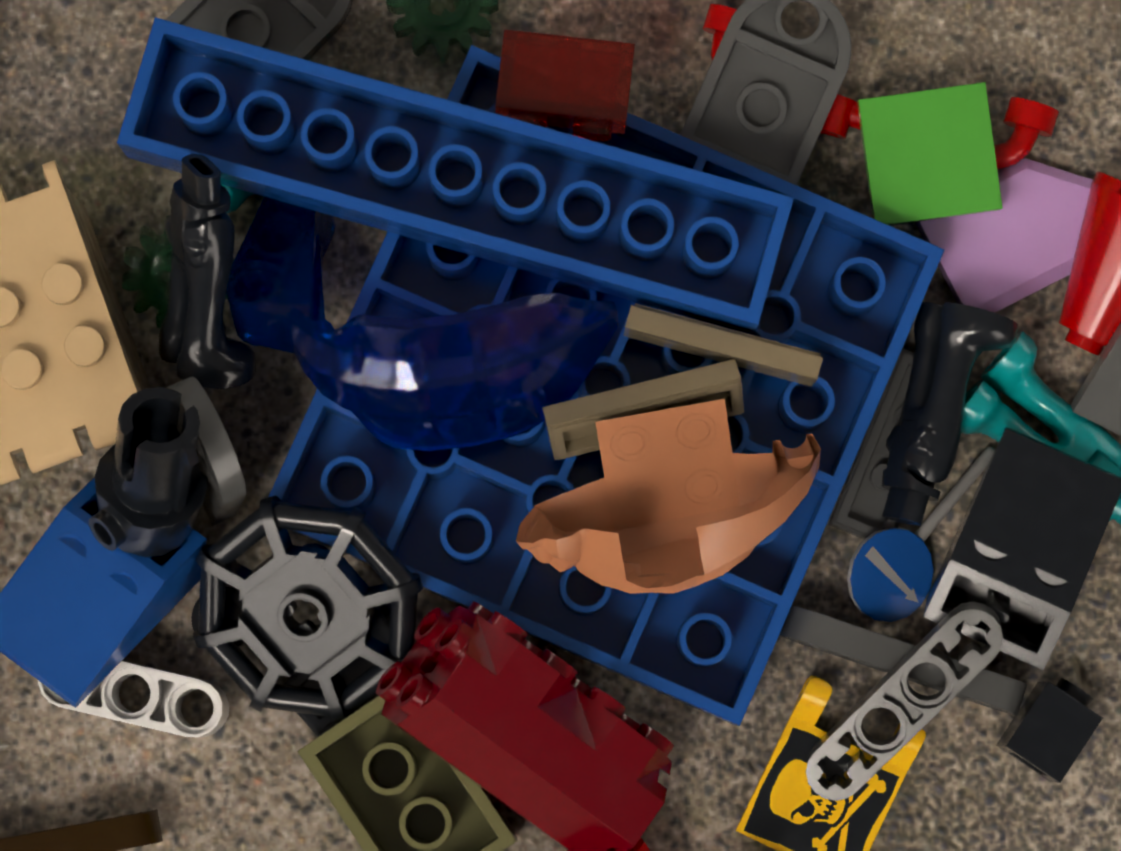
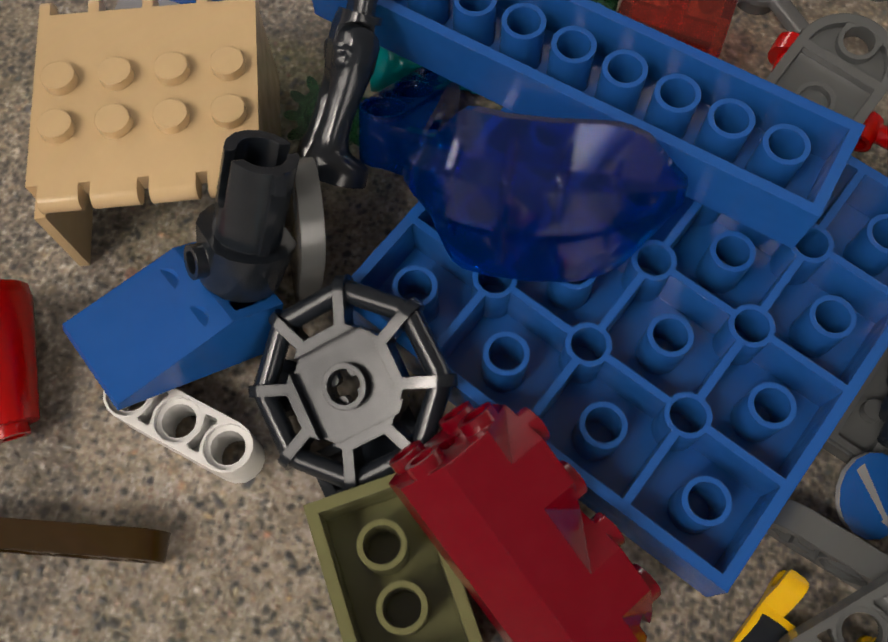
camera: 20 degrees right, 15 degrees down
(573, 425) = (692, 279): dark tan tile -> none
(670, 502) = (706, 357): nougat animal -> none
(723, 344) = (773, 246): dark tan tile -> none

